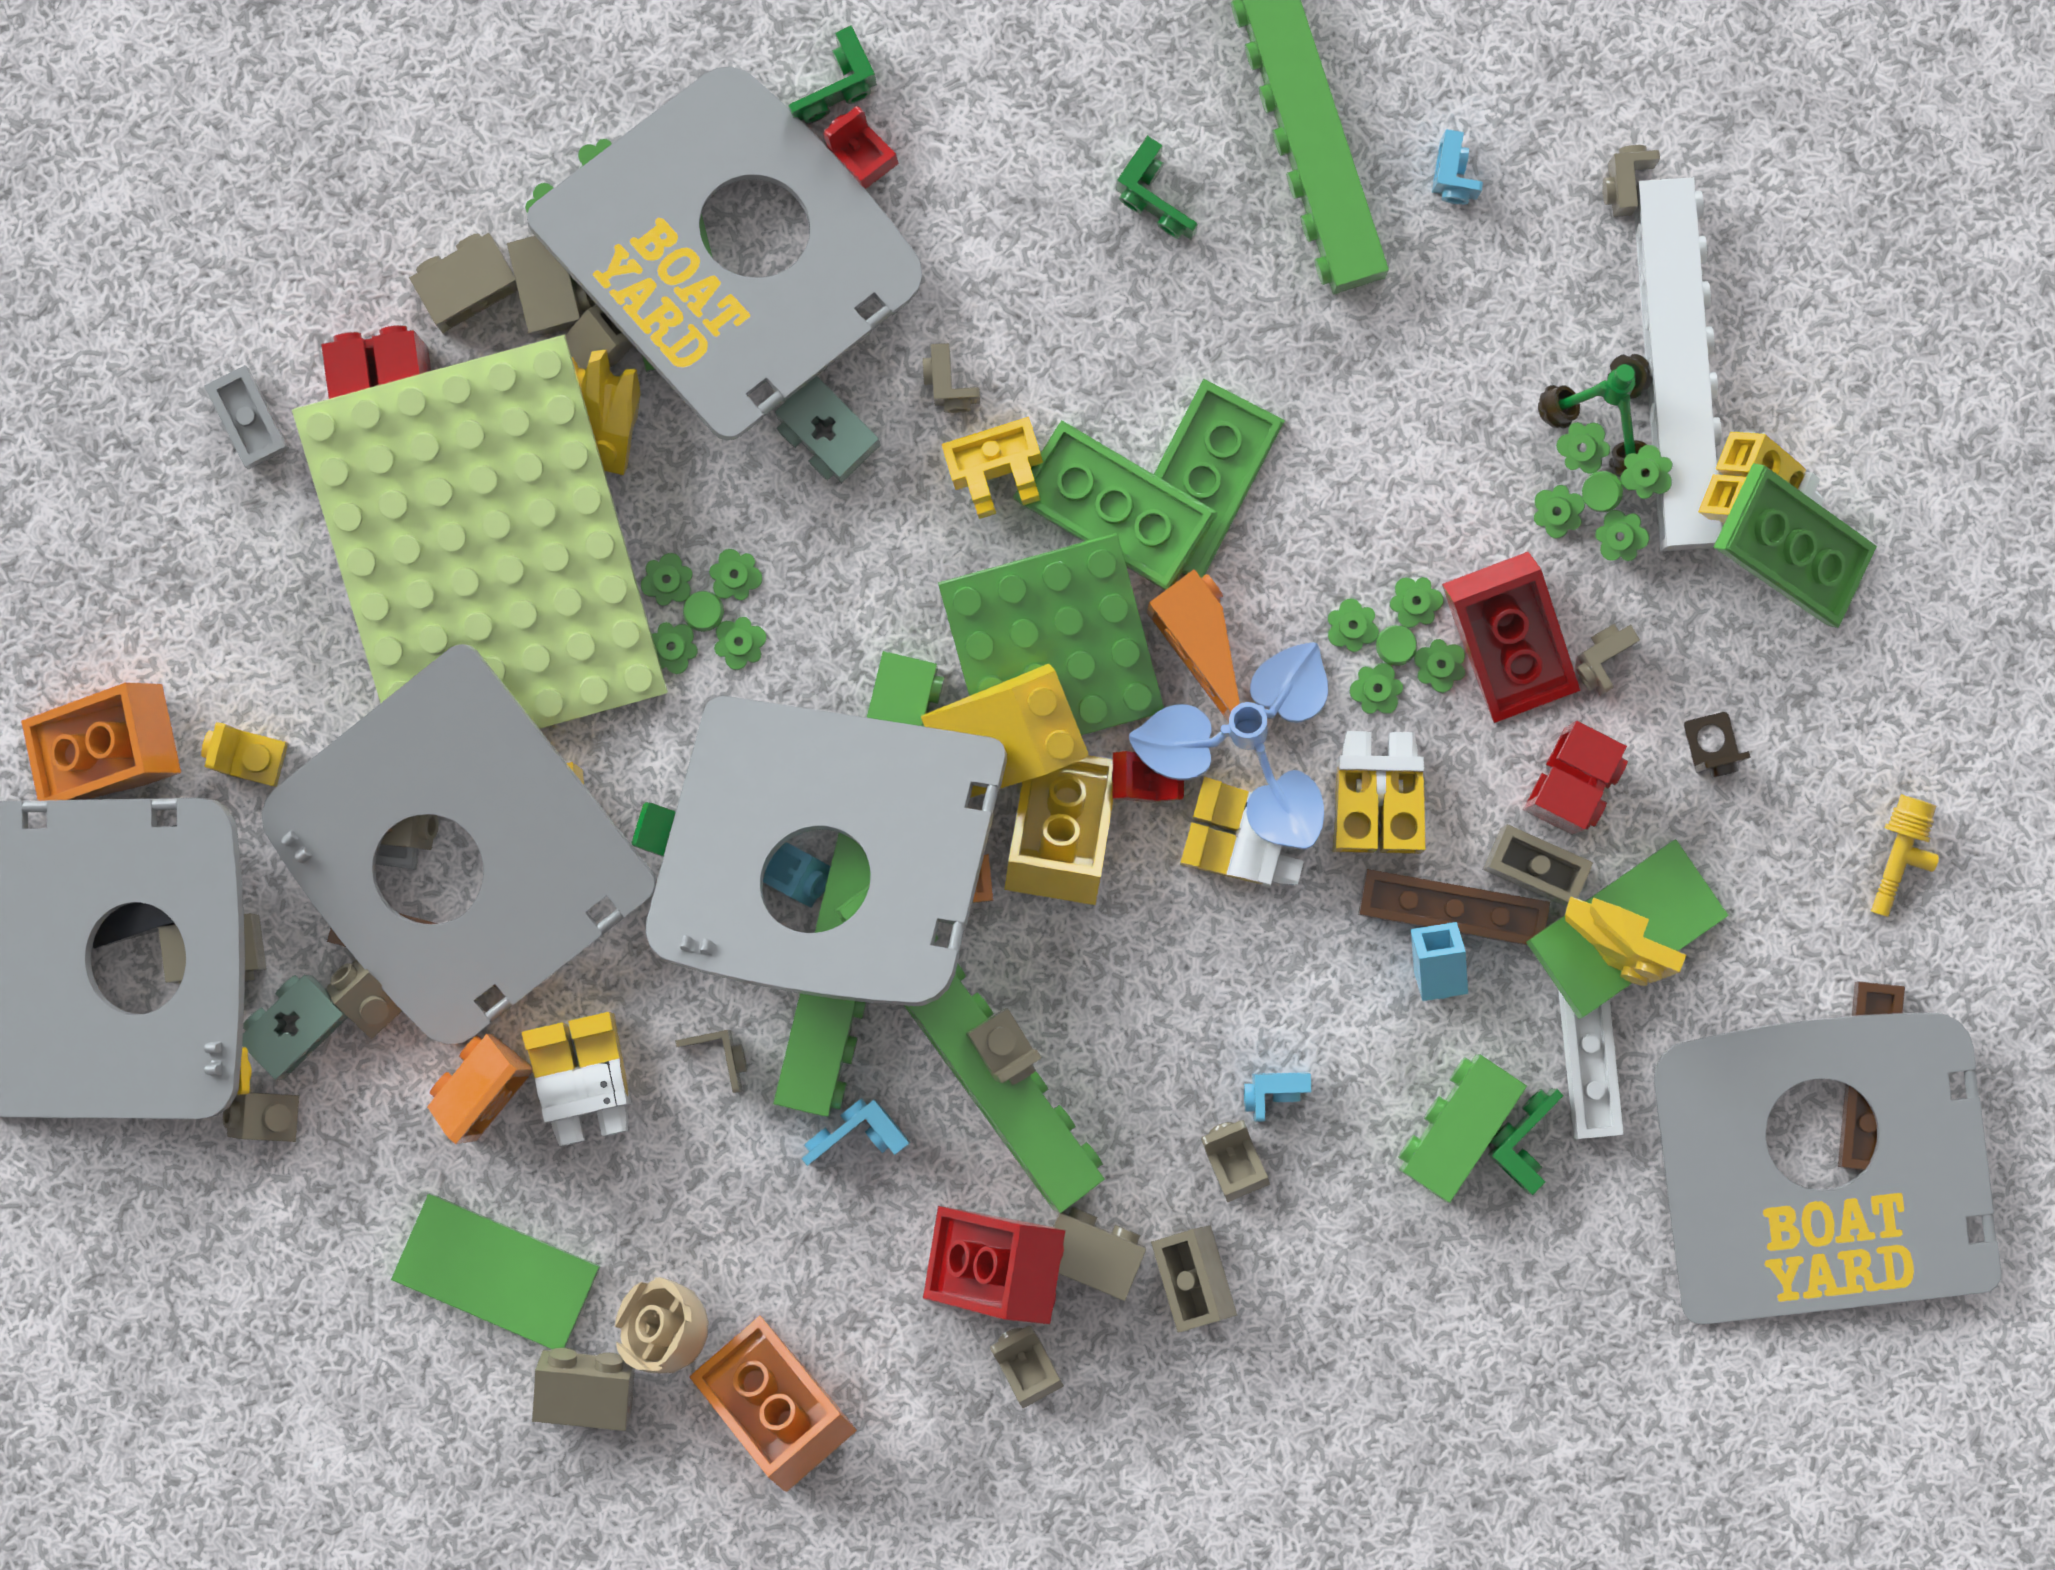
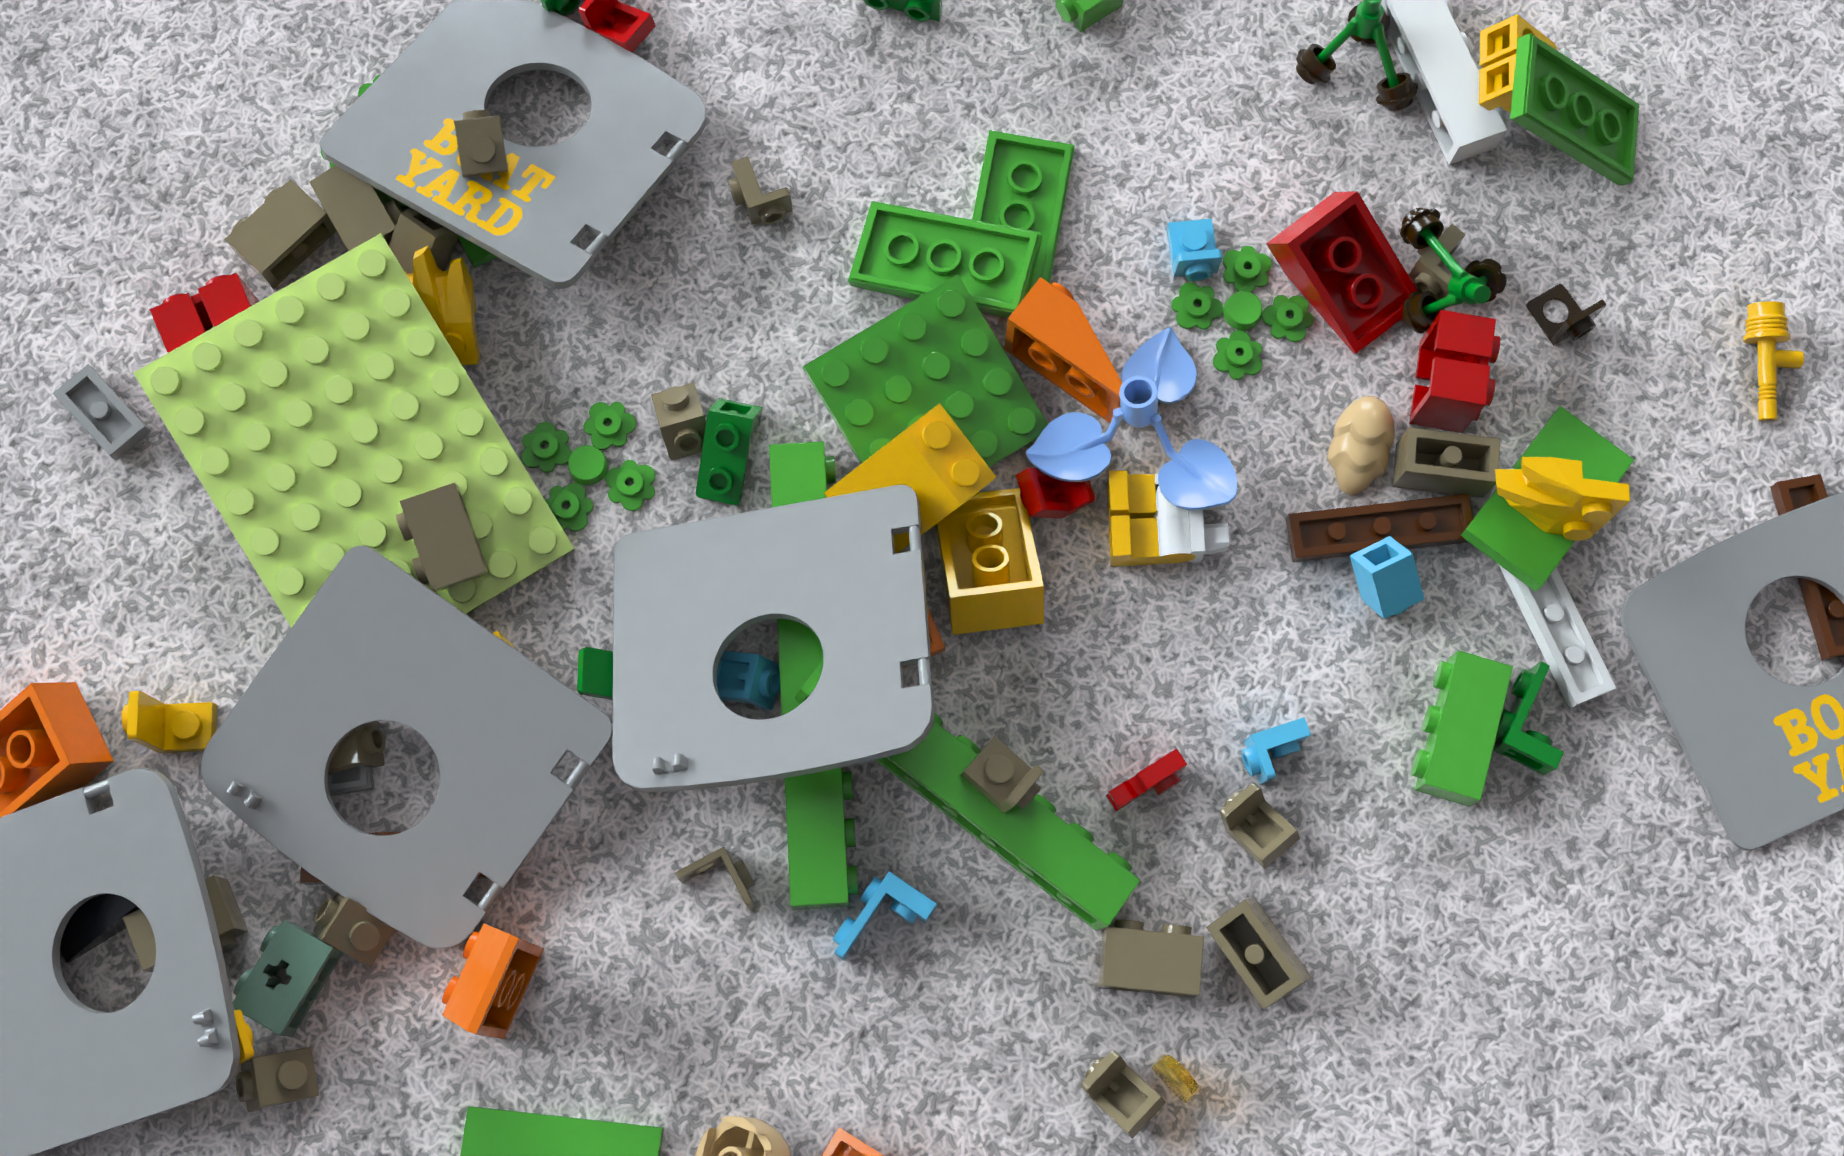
camera: 20 degrees left, 10 degrees down
(544, 656) = (442, 538): none -> dark tan brick
(581, 1090) = (594, 955): hips -> none
(685, 263) = (480, 144): none -> dark tan bracket
(806, 594) = (680, 420): none -> dark tan bracket
(842, 637) = (726, 450): none -> green bracket
(852, 438) = (645, 248): sand green brick -> none
(992, 455) = (818, 246): yellow plate -> none
(994, 1265) = (1059, 998): red slope -> none
(1081, 1366) = (1176, 1078): none -> clear yellow tile
(1155, 1085) = (1158, 776): none -> red plate
(1368, 566) = (1193, 249): none -> medium azure bracket
(1382, 781) = (1277, 446): yellow hips -> none
(1466, 817) = (1361, 444): none -> tan arm
(1603, 491) = (1382, 121): bright green plant -> none
(1642, 689) = (1471, 285): none -> dark brown plant

